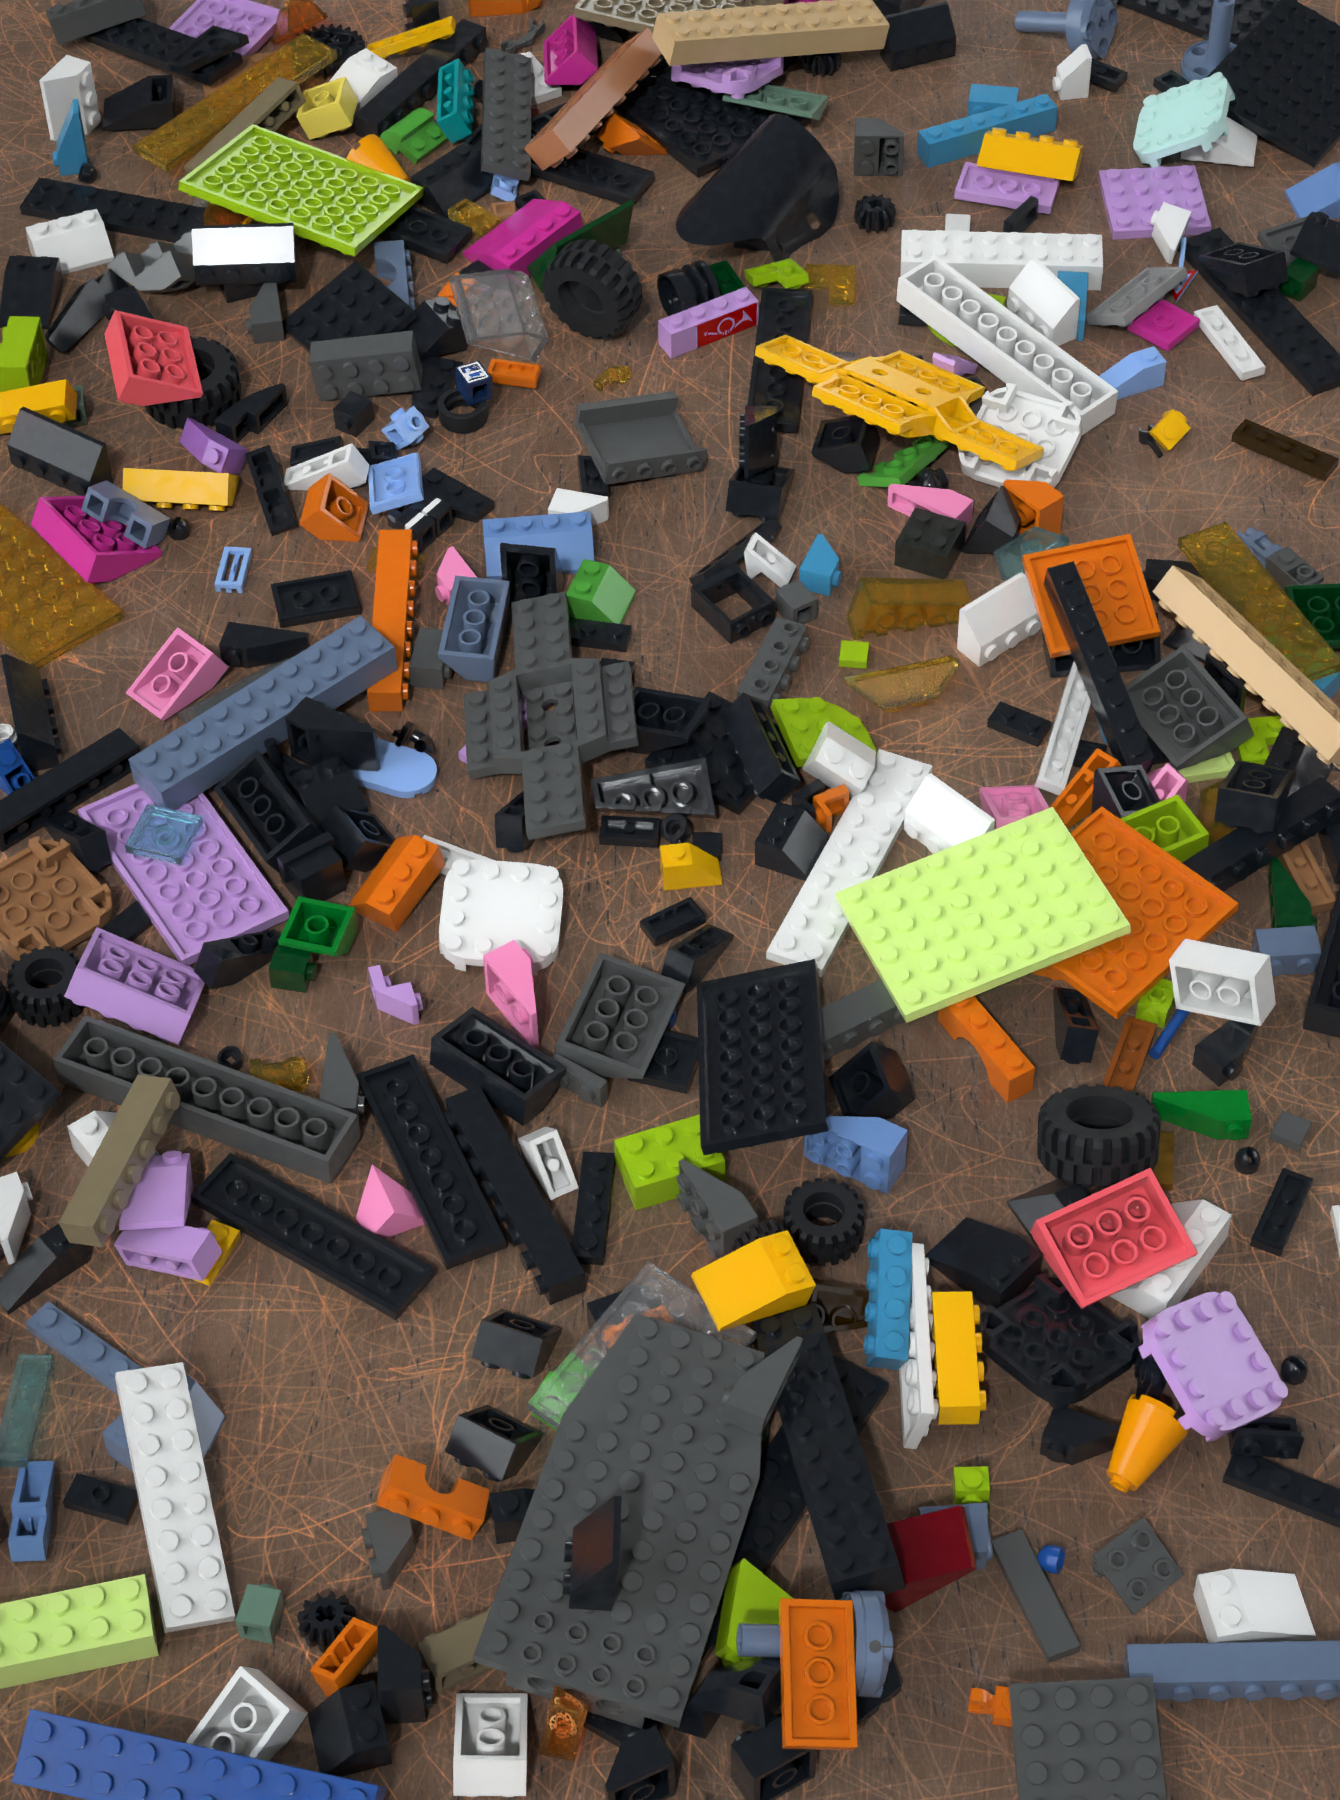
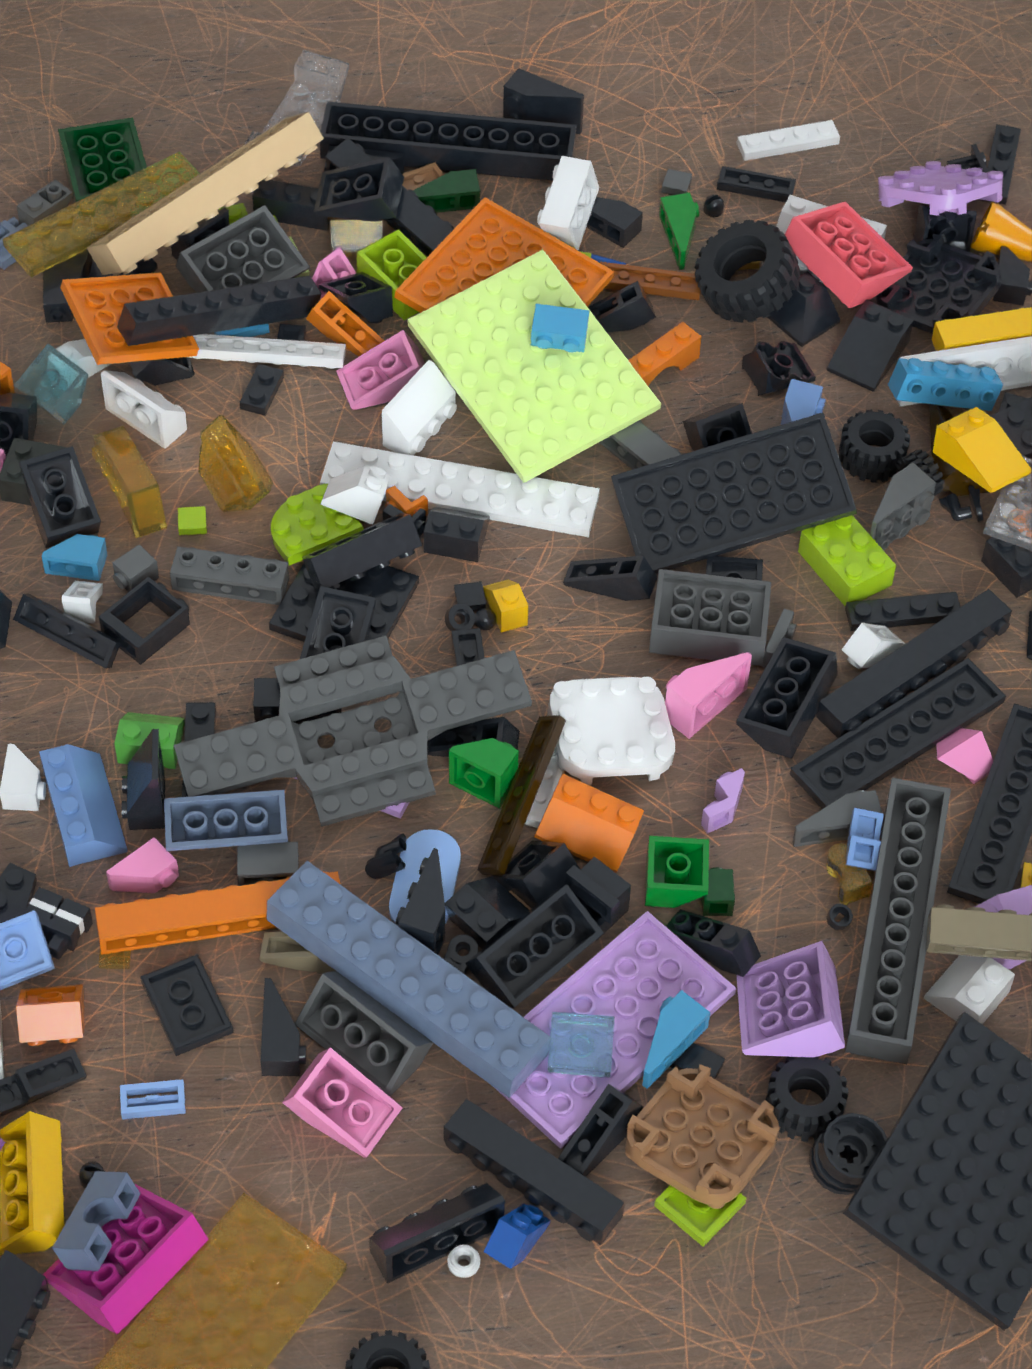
camera: 105 degrees left, 5 degrees up
(143, 892) = (678, 1027): none -> dark azure slope
(295, 1078) = (863, 839): none -> medium blue slope
(443, 832) = (521, 795): none -> dark brown tile
(473, 811) = (484, 769): none -> green slope
(658, 791) = (423, 624): black wedge -> none
(672, 921) = (572, 604): black plate -> none
(880, 543) = (59, 496): none -> black slope
(969, 1165) = (774, 367): none -> black slope
(1003, 917) = (559, 328): none -> dark azure brick
(1290, 949) = (498, 186): sand blue brick -> none
(1291, 1372) = (897, 163): black hinge -> none

